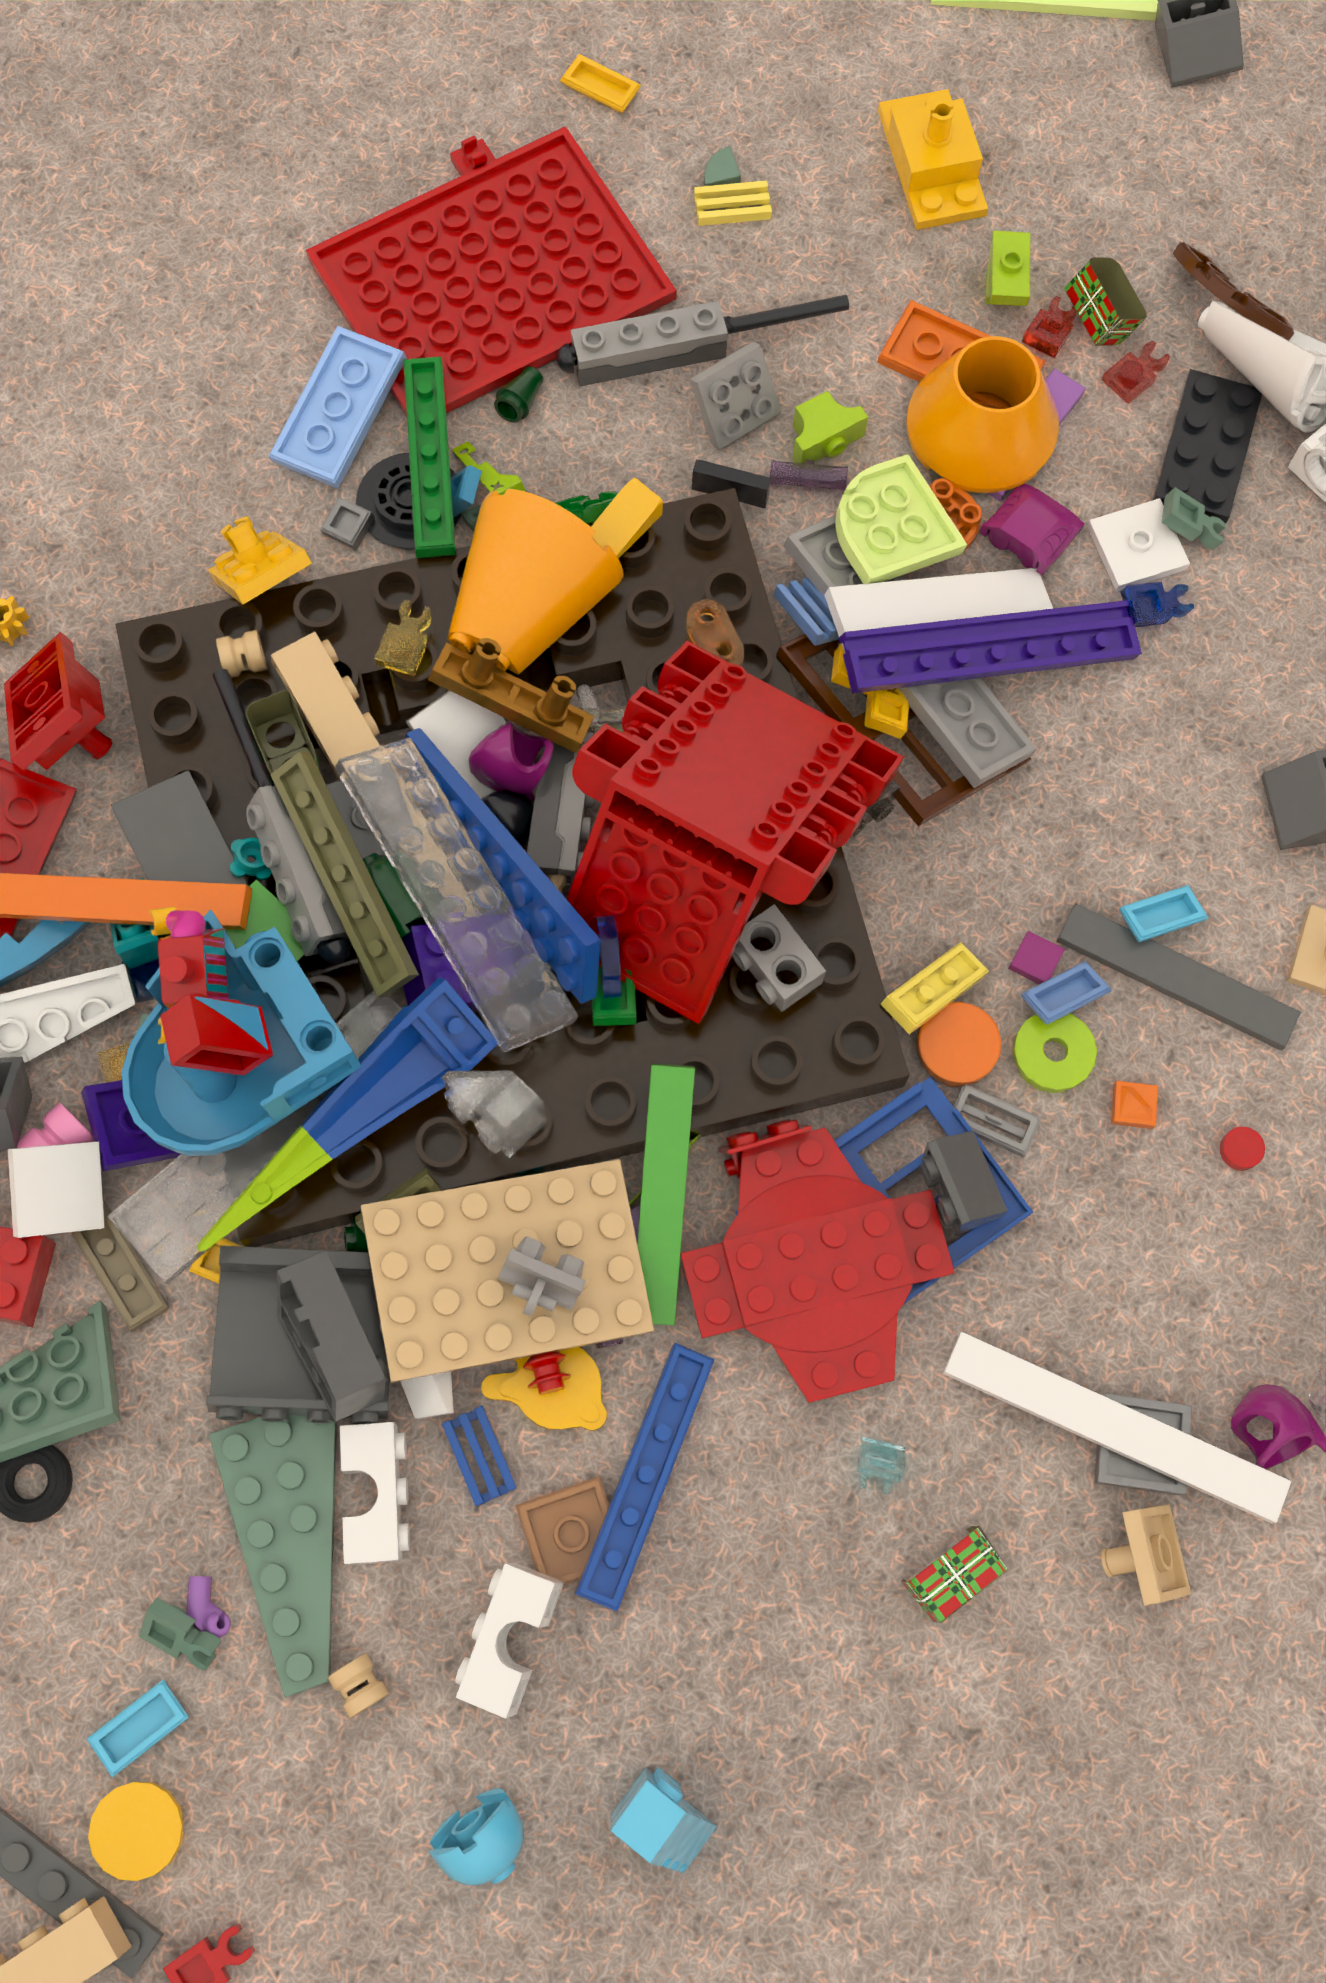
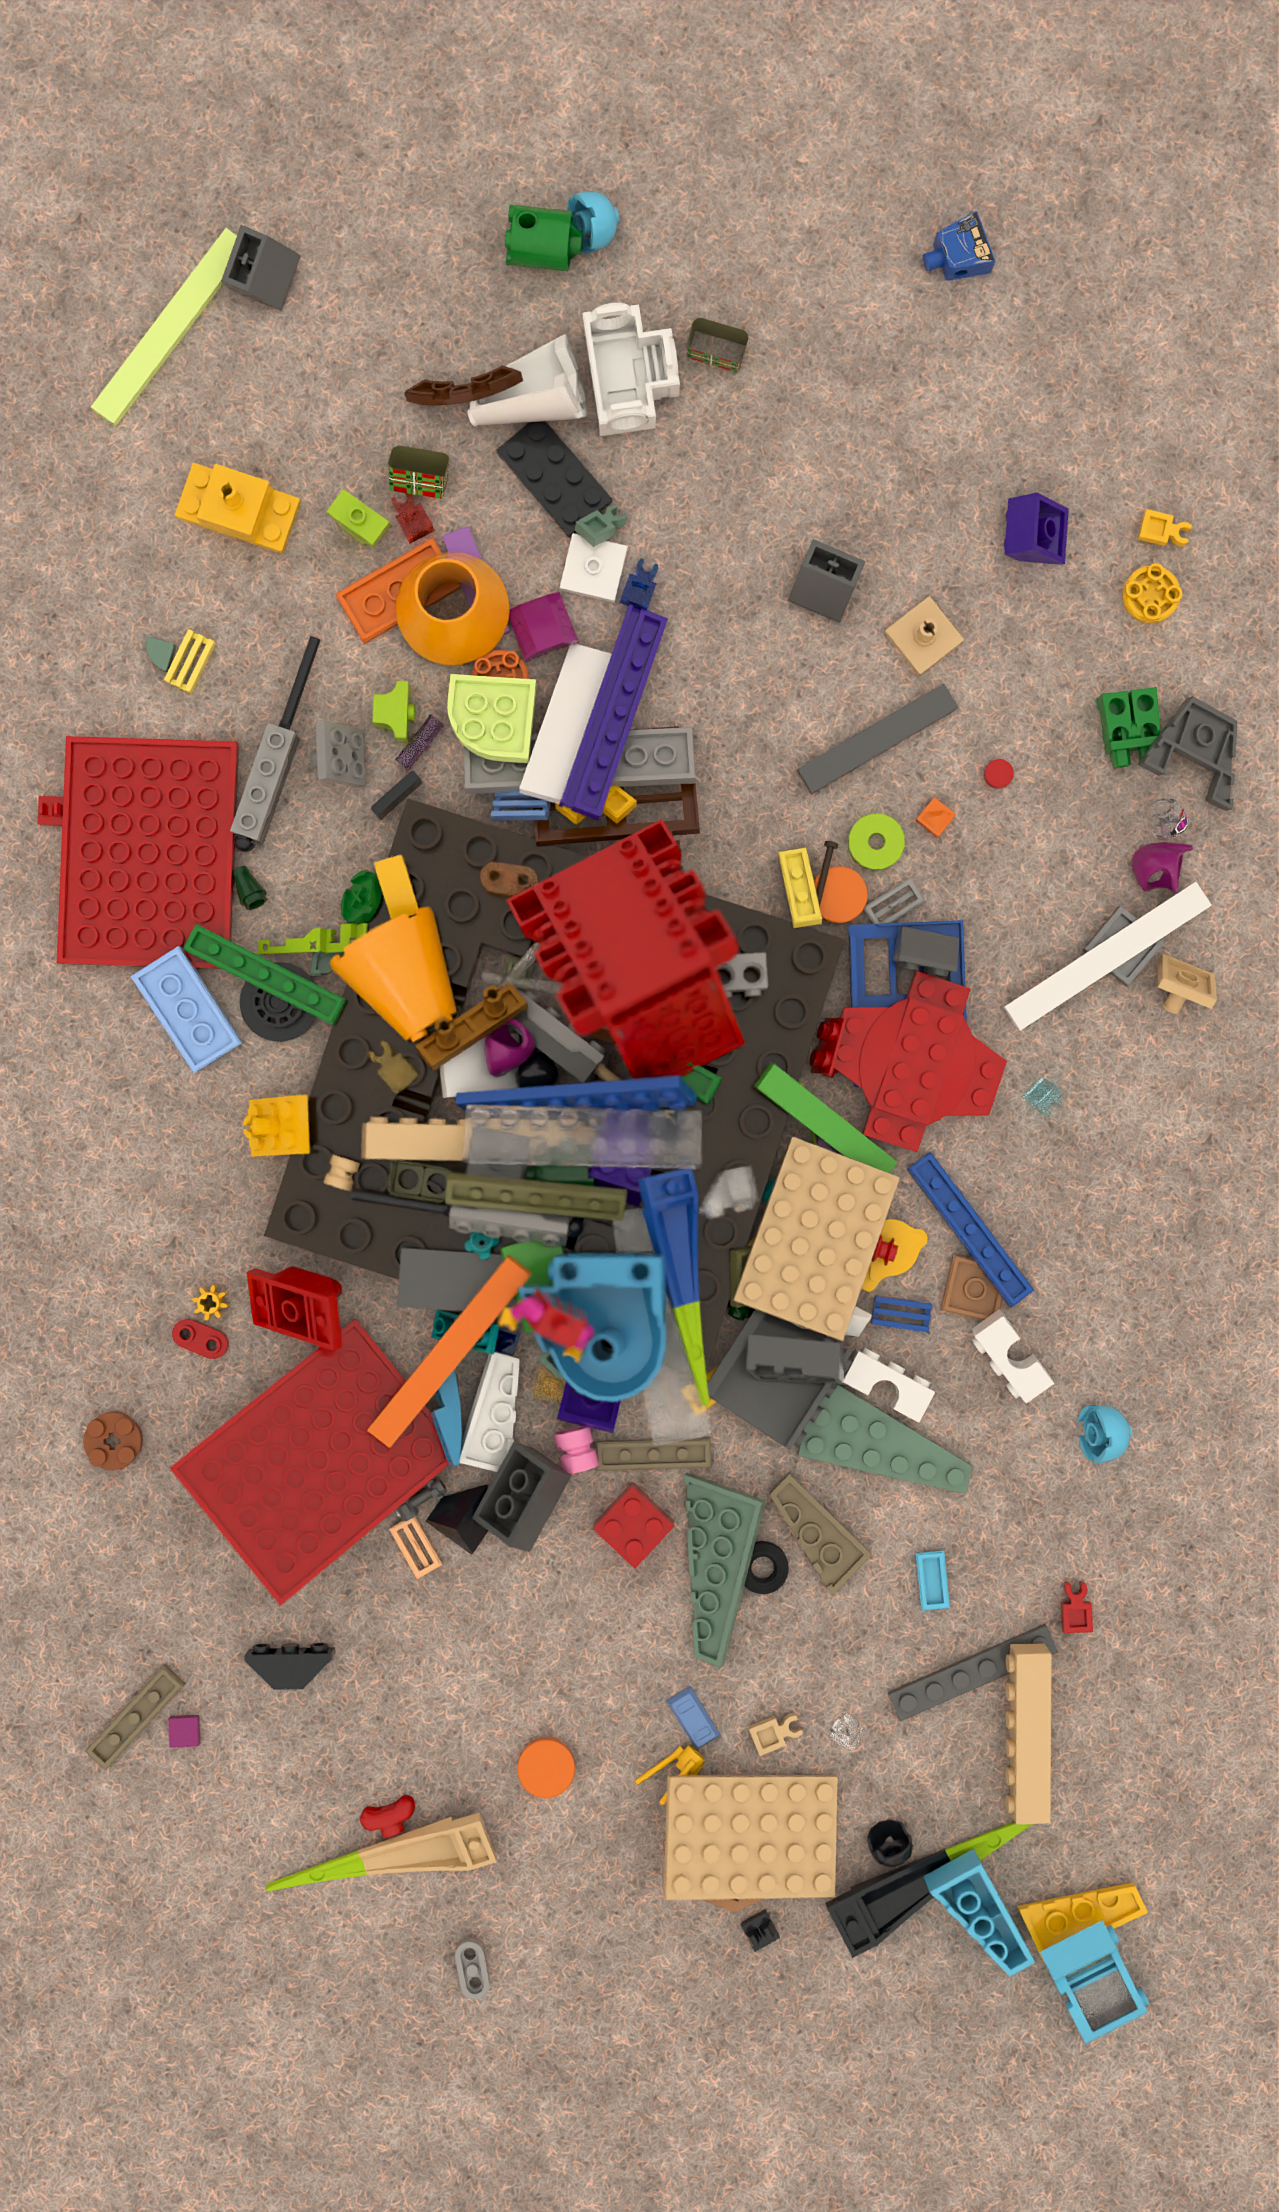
camera: 60 degrees left, 15 degrees up
(55, 1189) = (611, 1465): white tile -> none
(113, 1543) = (823, 1538): none -> dark tan wing
(136, 1831) = (984, 1609): yellow tile -> none
(173, 1633) = (896, 1533): sand green plate -> none
(203, 1610) = (893, 1512): medium lavender arm -> none
(216, 1034) = (610, 1329): red brick -> none
(347, 523) = (272, 1051): flat silver tile -> none
(351, 1677) = (985, 1451): tan wheel -> none
(464, 488) = (299, 965): dark azure tile -> none
(541, 1282) = (842, 1228): light grey hips -> none
(600, 83) = (42, 690): yellow tile -> none
(609, 956) = (673, 1068): clear blue plate -> none
(660, 1822) = (1154, 1336): medium azure wedge -> none
(956, 1576) = (1130, 1095): piece -> none
(1011, 995) = (825, 868): none -> dark brown piece
(1036, 958) = (815, 814): magenta tile -> none
(1065, 993) = (848, 812): medium blue tile -> none
(1134, 375) = (475, 488): clear red plate -> none
(1163, 913) = (837, 721): medium azure tile -> none

